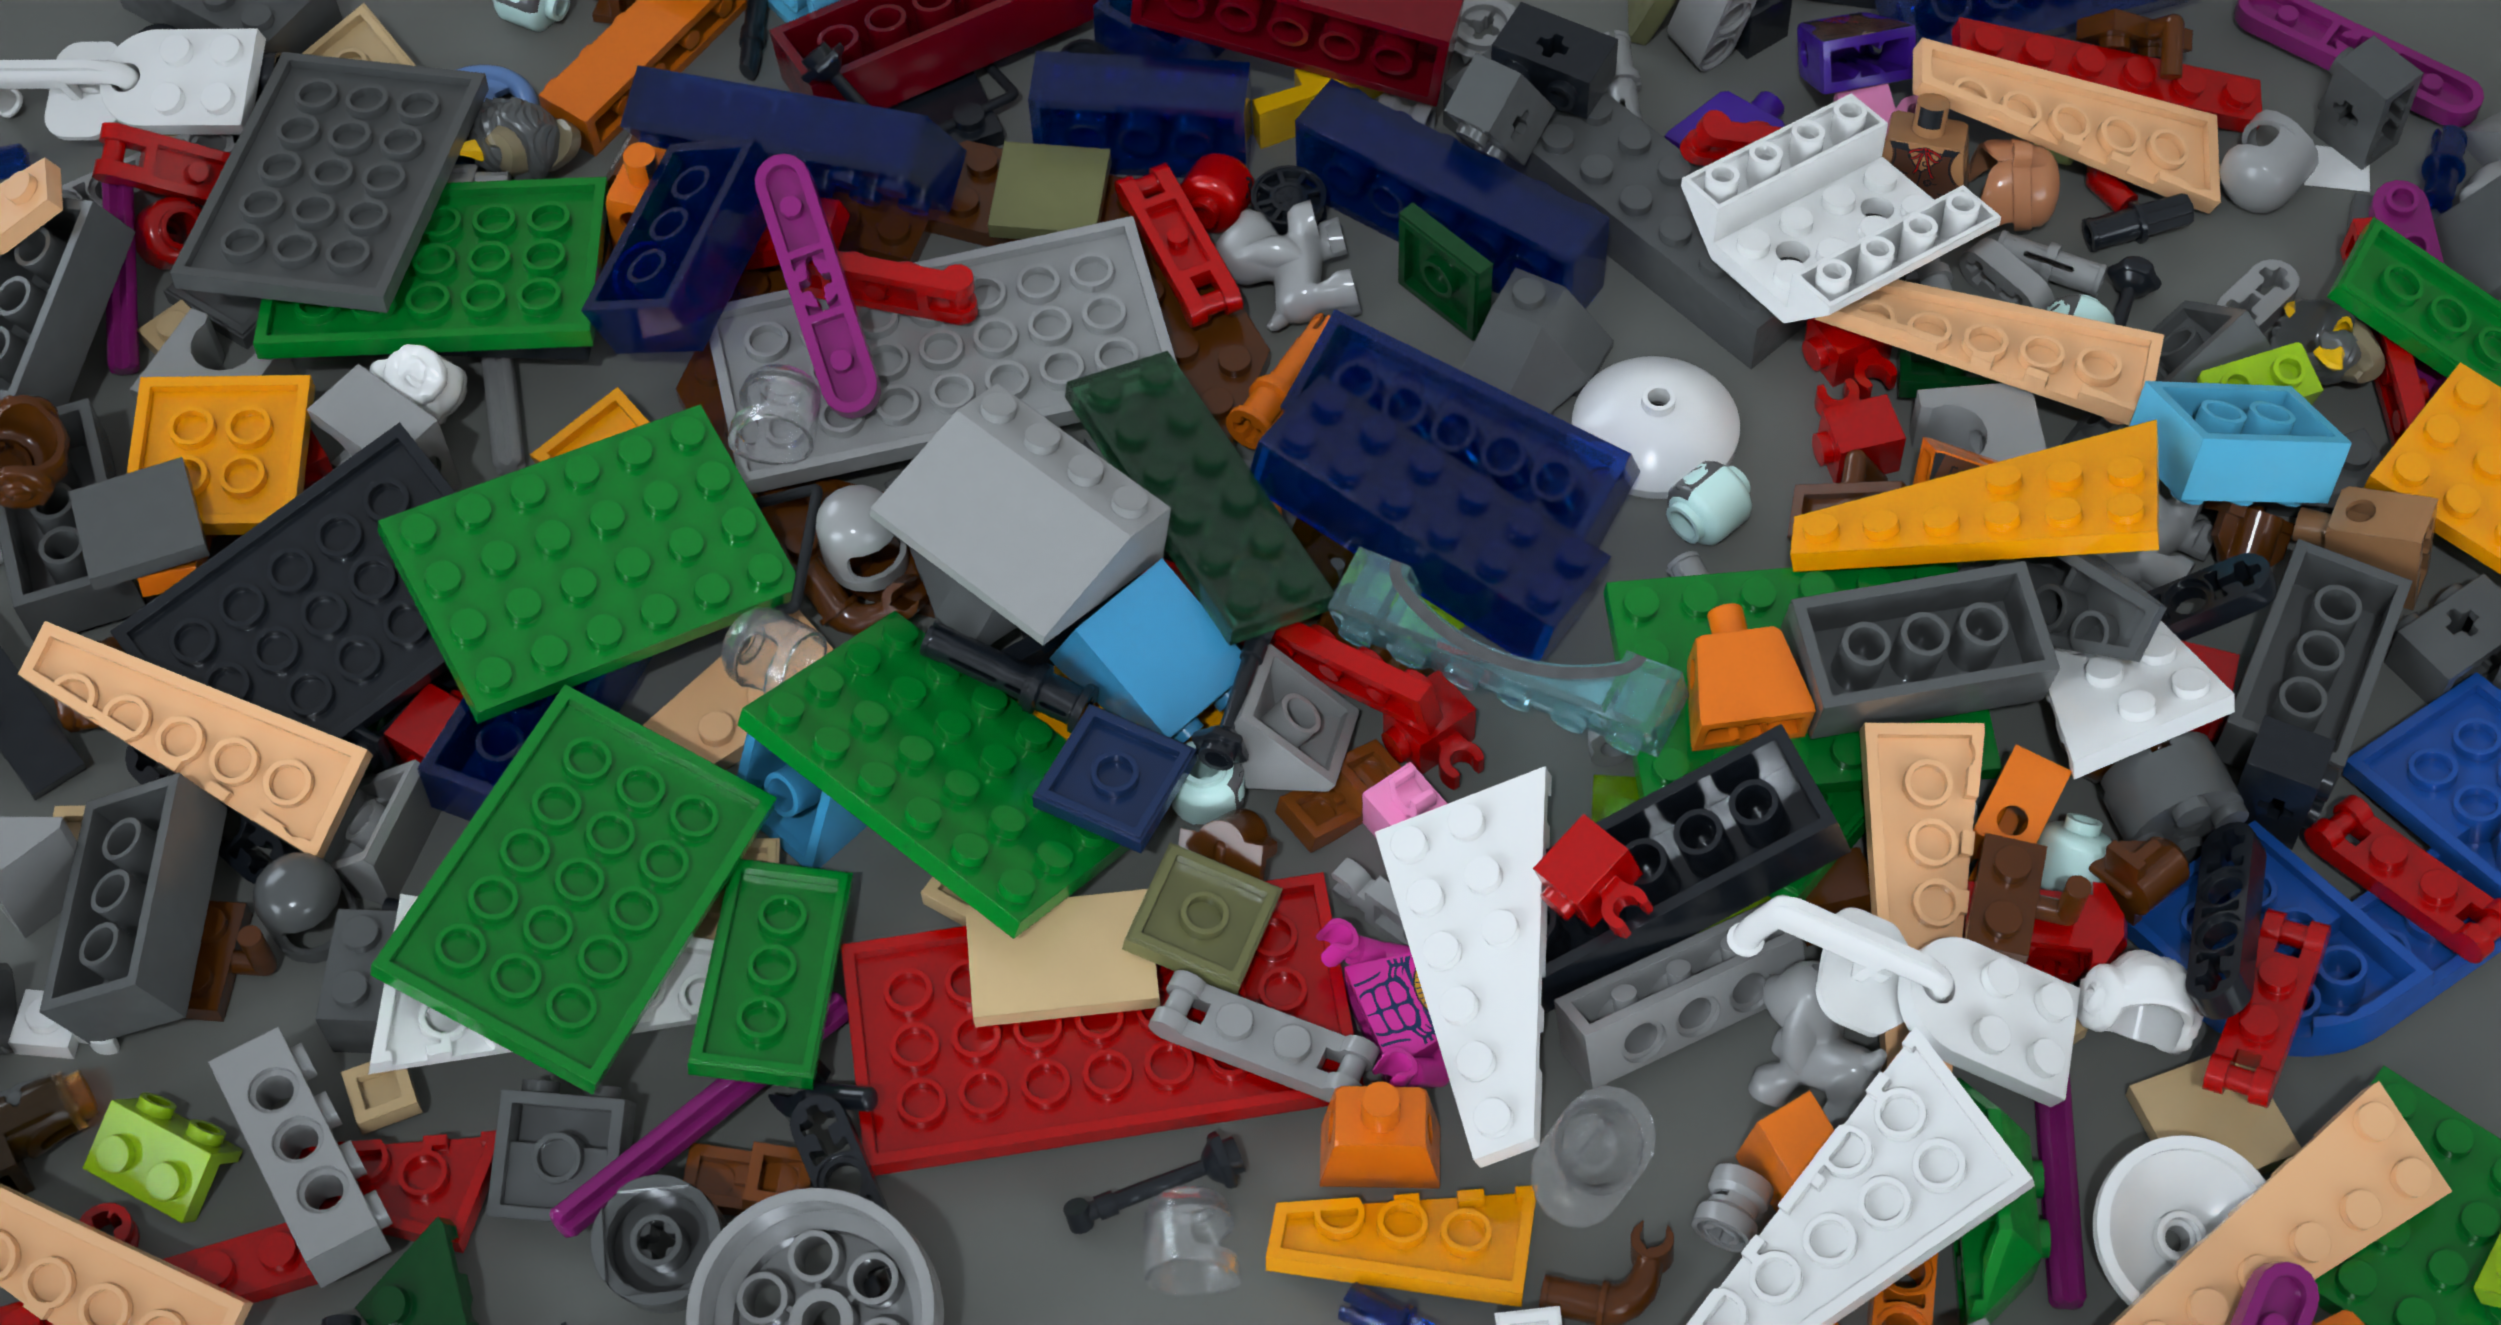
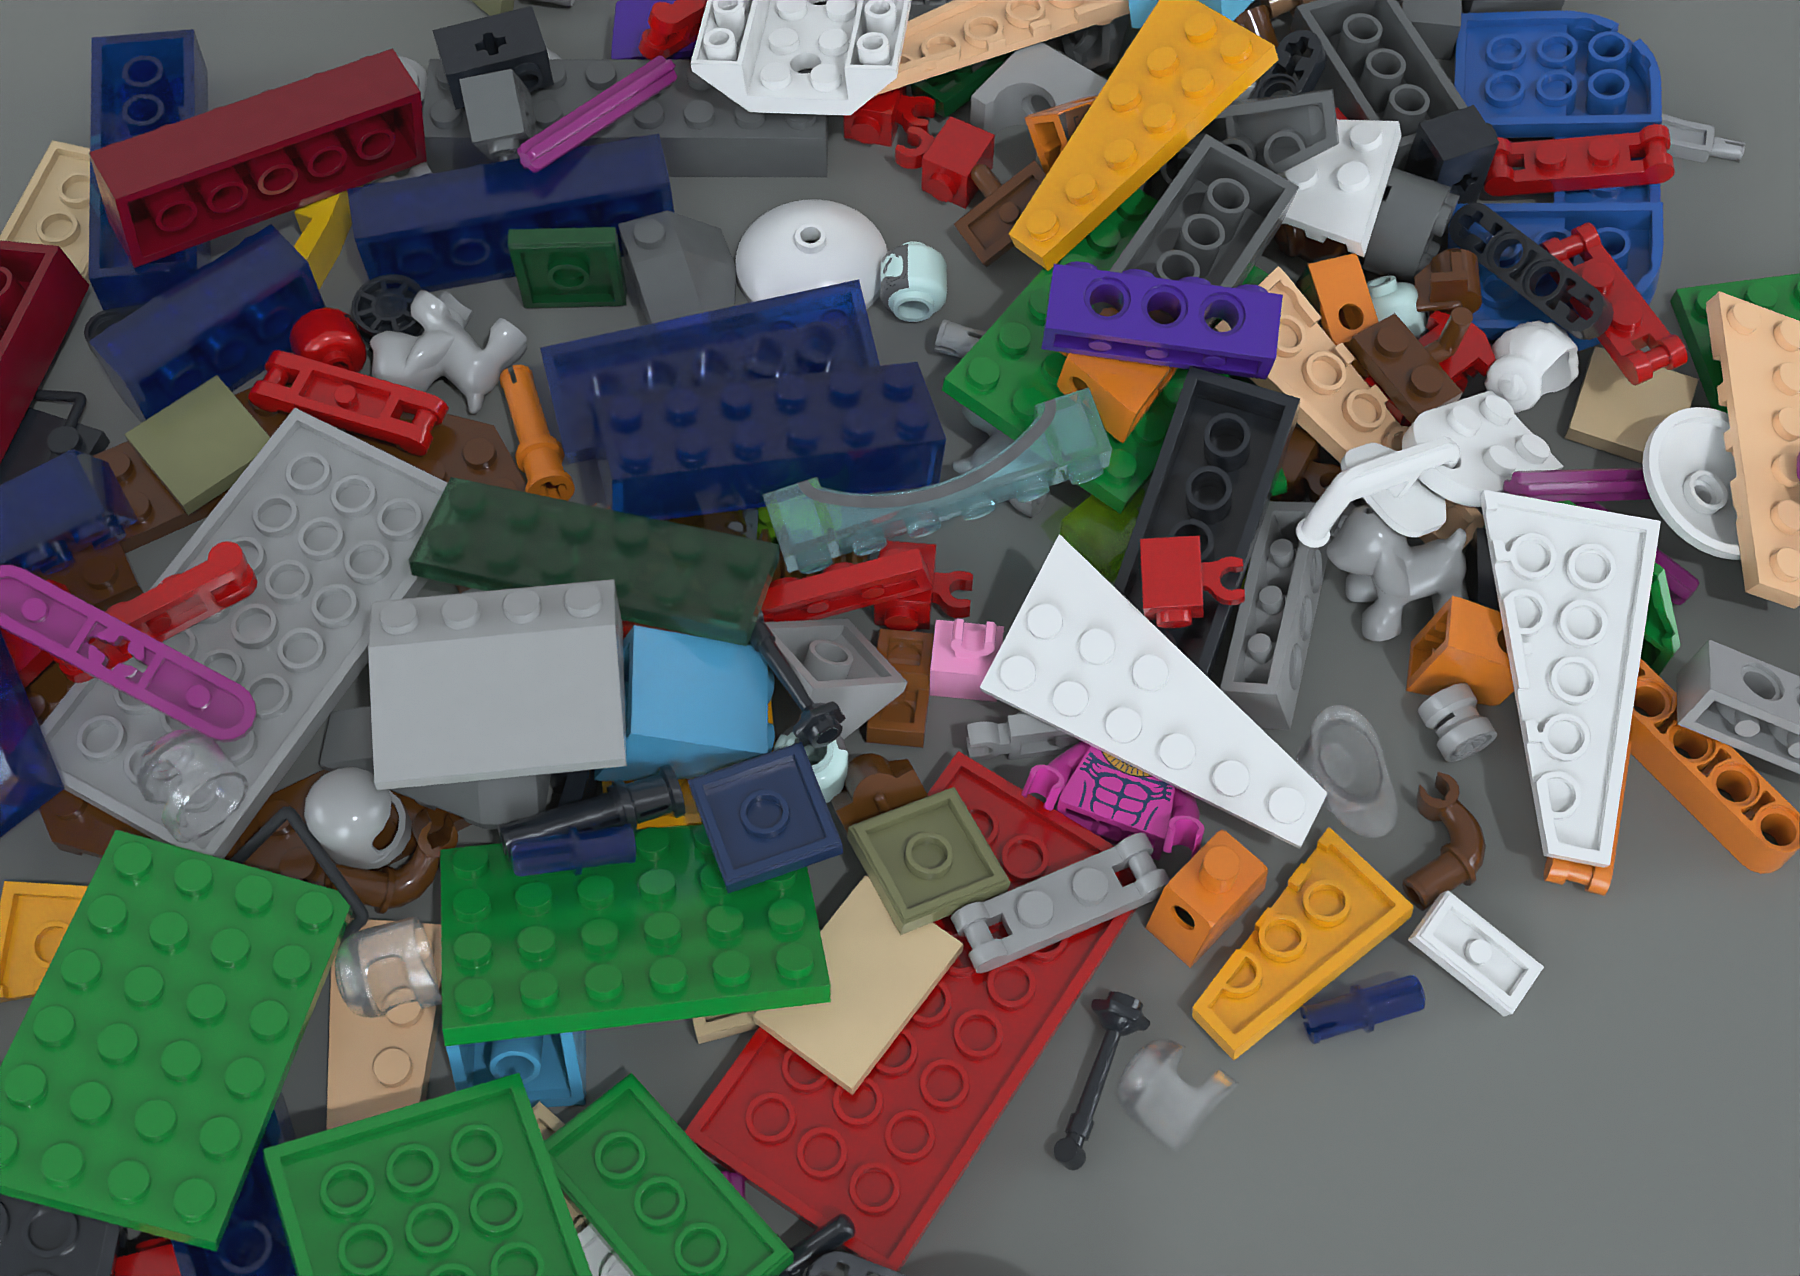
camera: 50 degrees left, 5 degrees up
(964, 682) = (573, 851): none -> clear blue axle
(1579, 164) = (596, 114): none -> magenta axle
(1836, 743) = (1135, 337): none -> dark purple brick
(2038, 1112) = (1579, 485): none -> magenta axle

